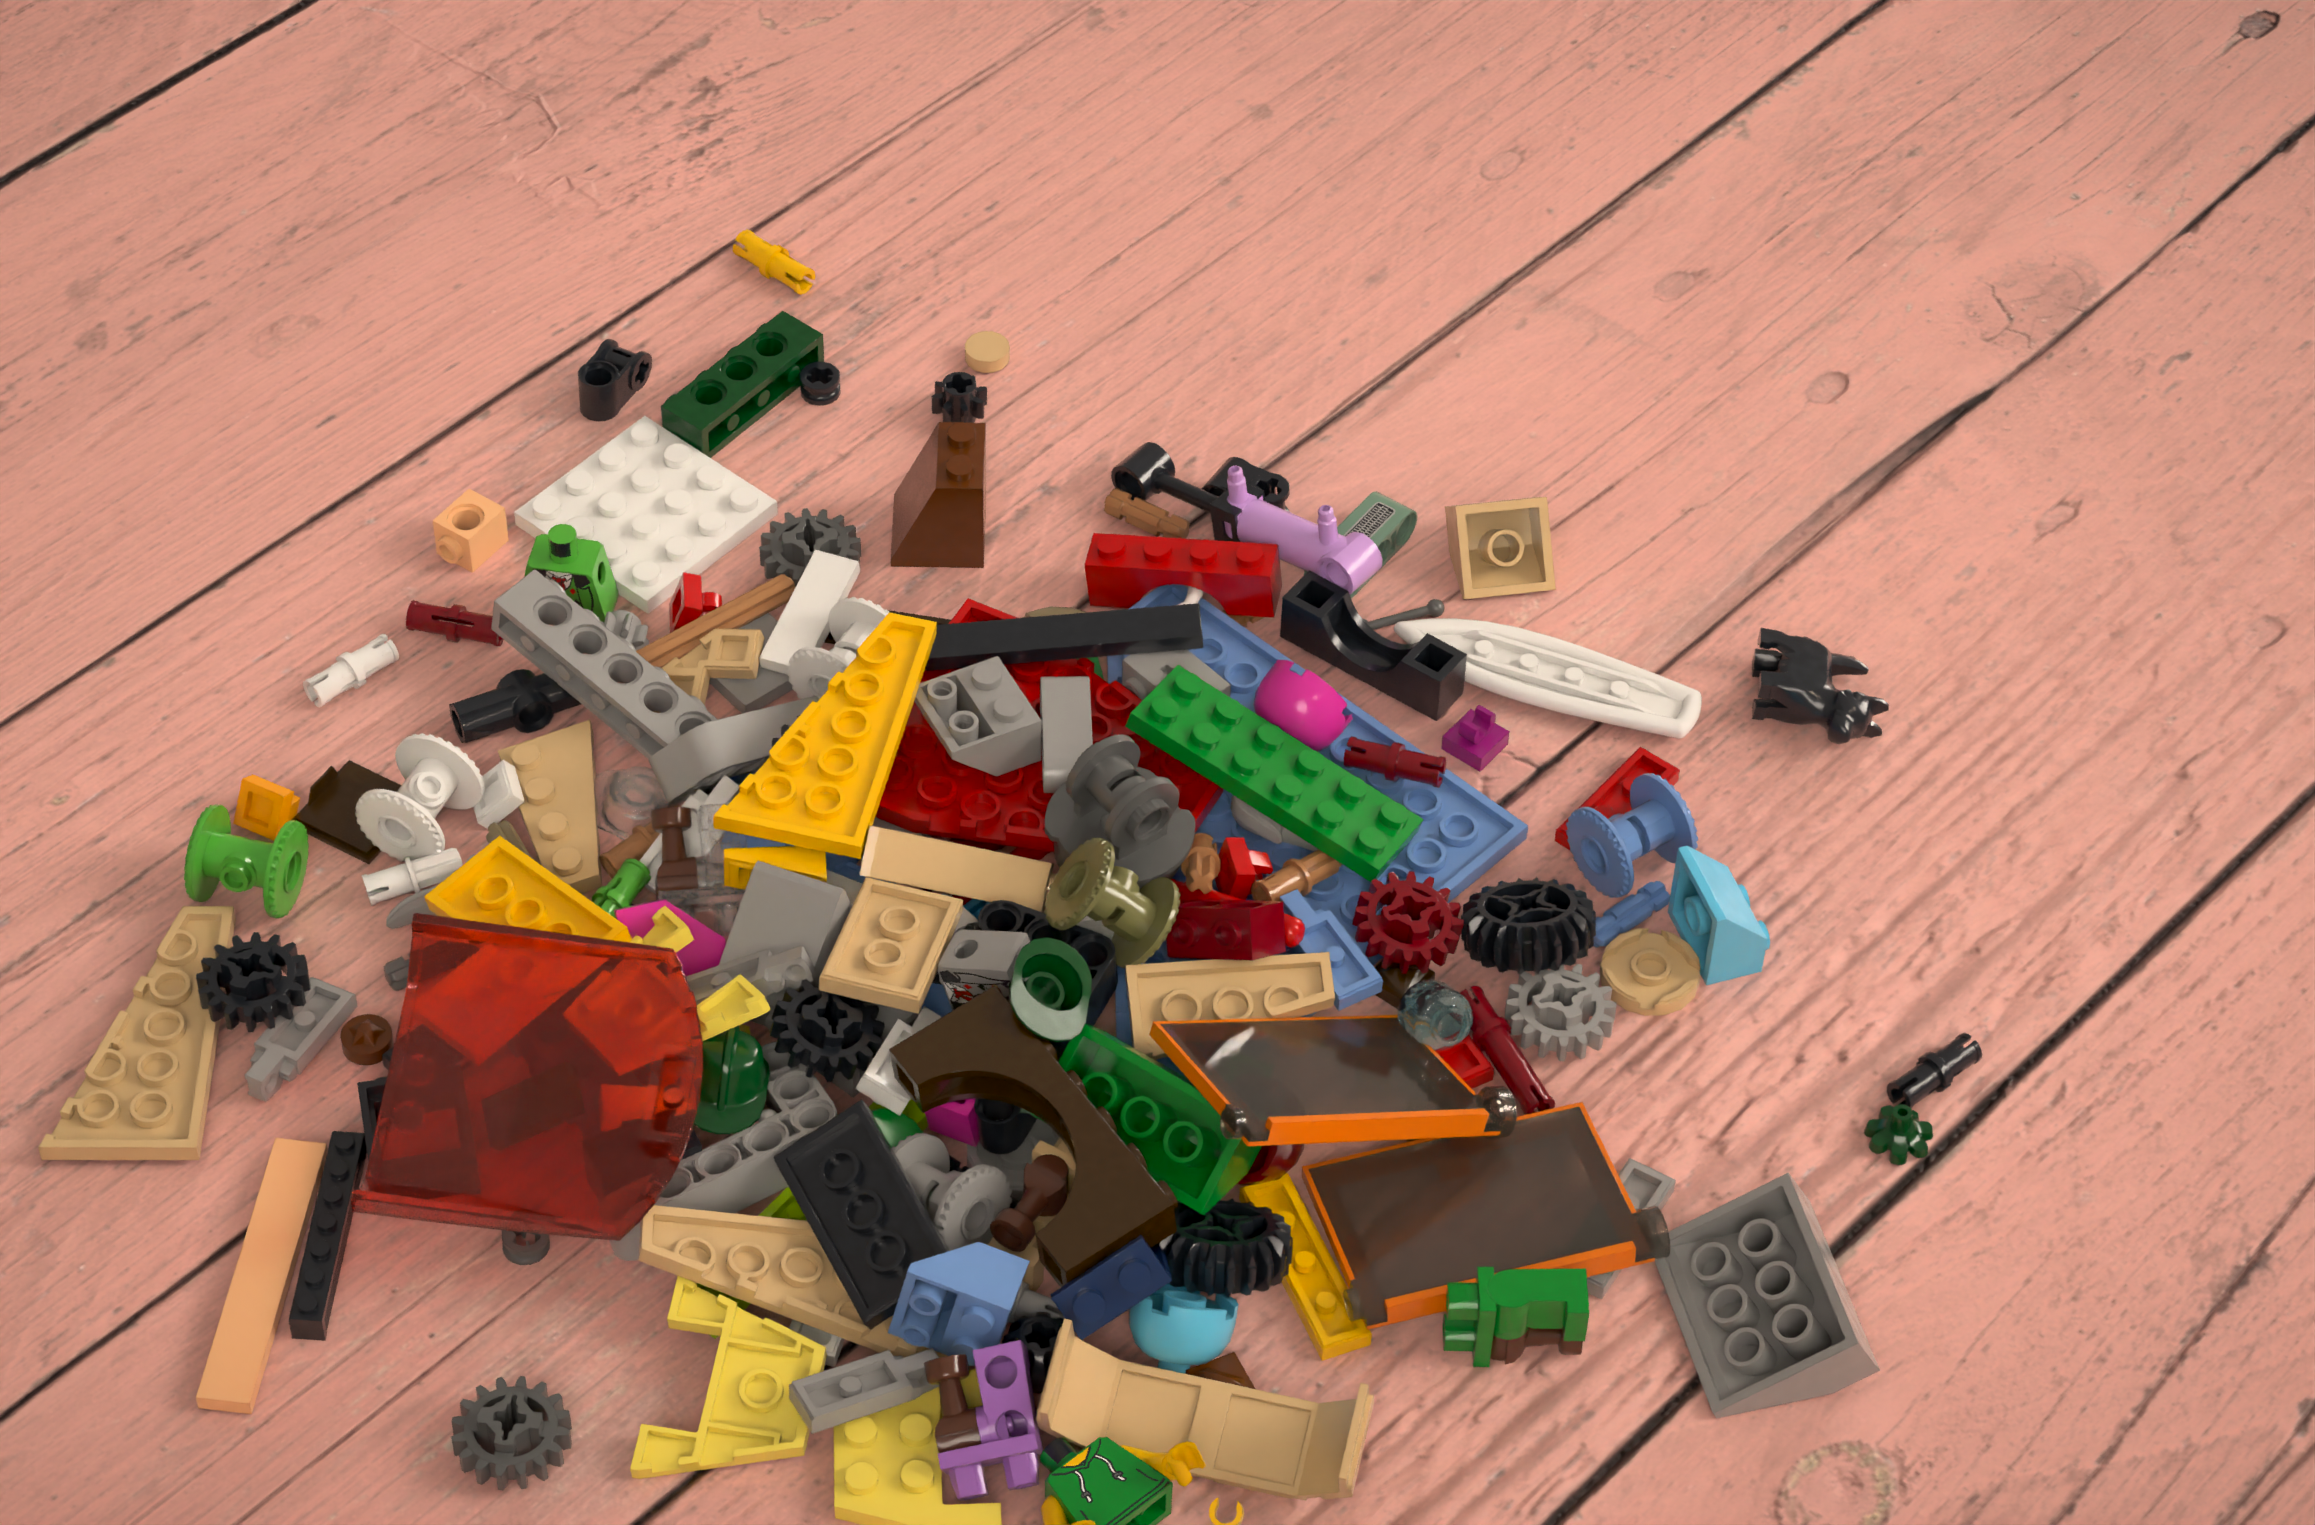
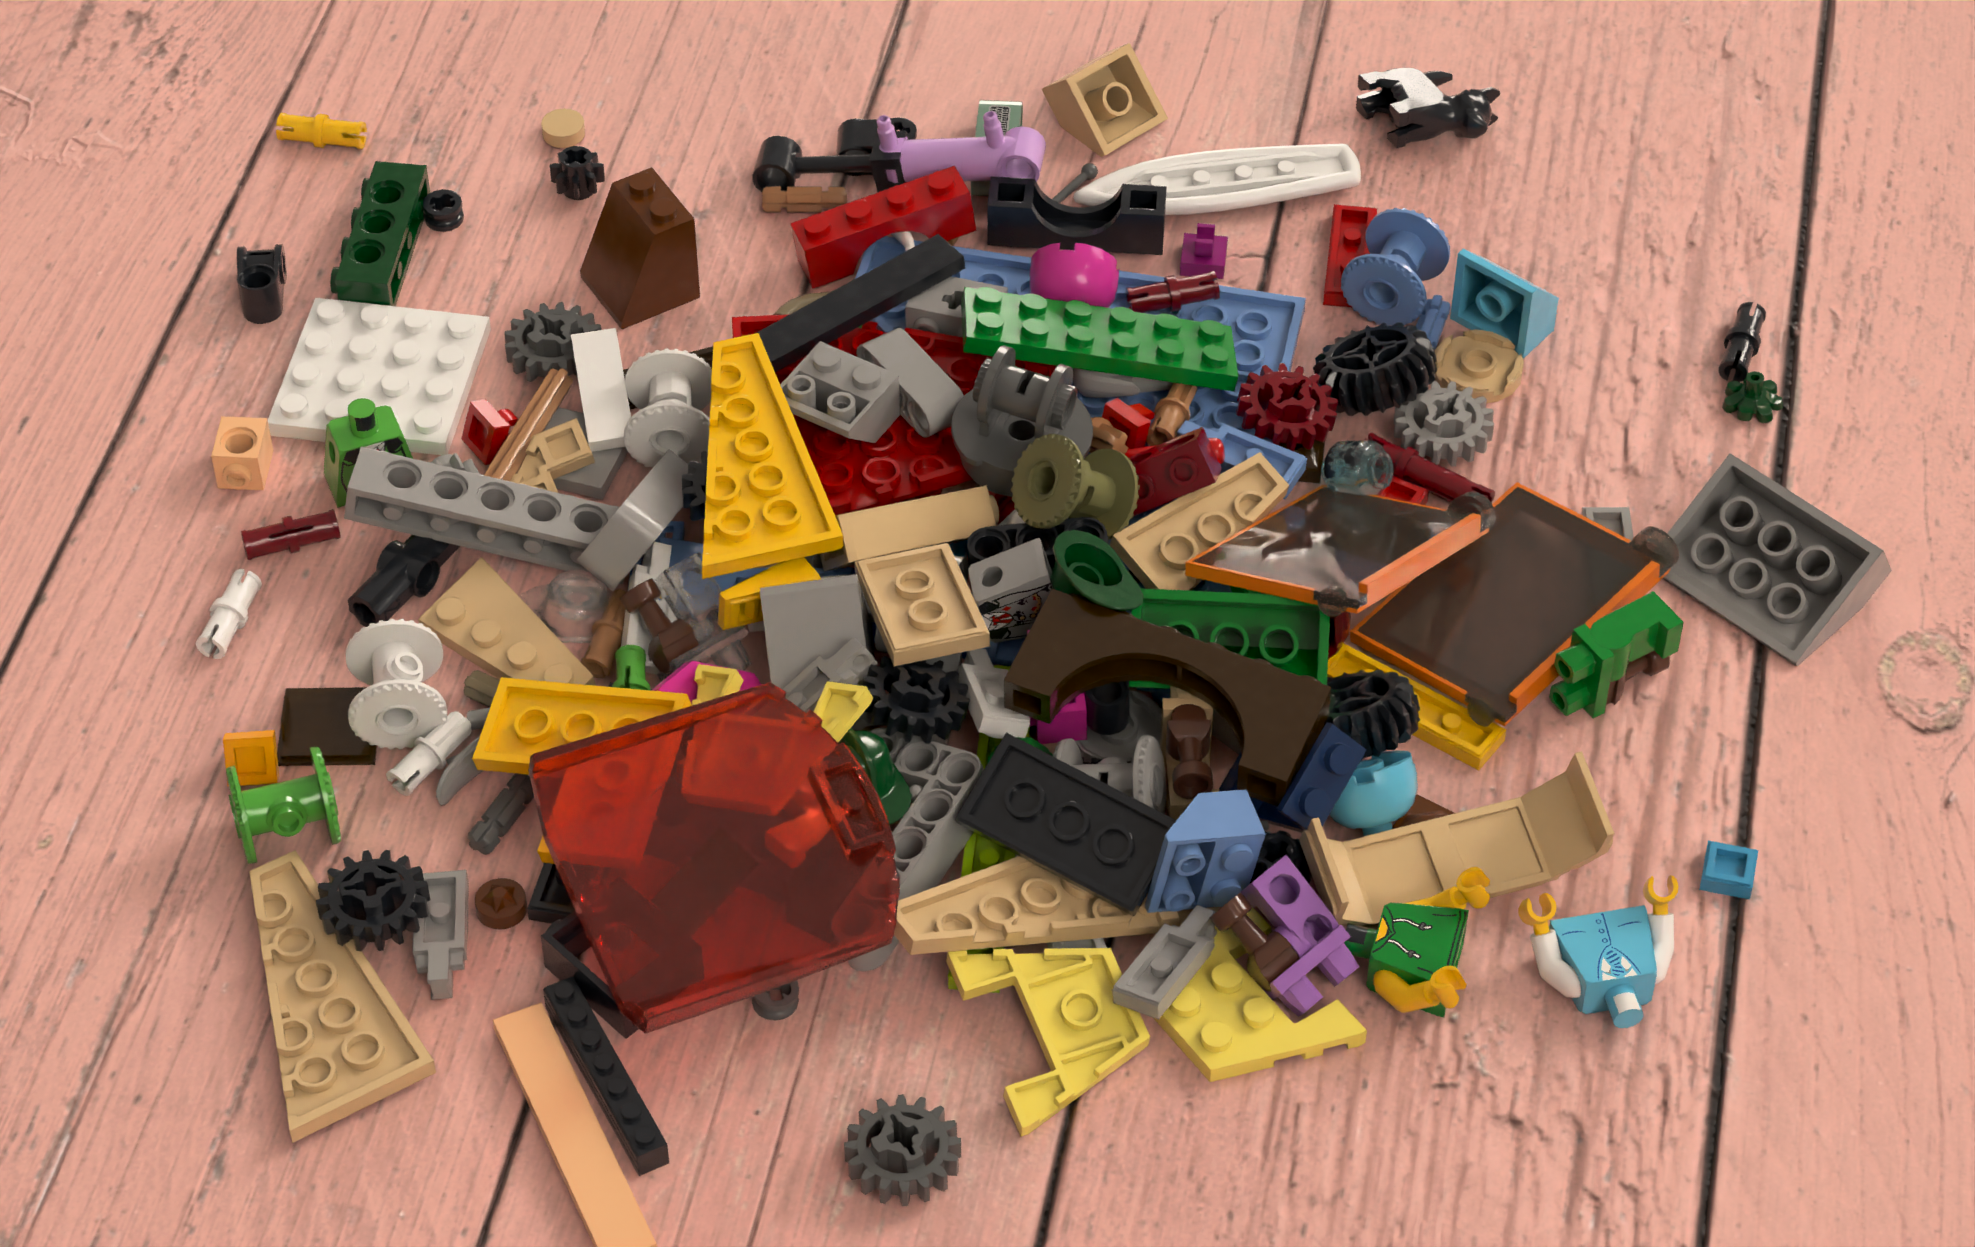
camera: 30 degrees left, 0 degrees up
(500, 795) = (458, 654): white tile -> none

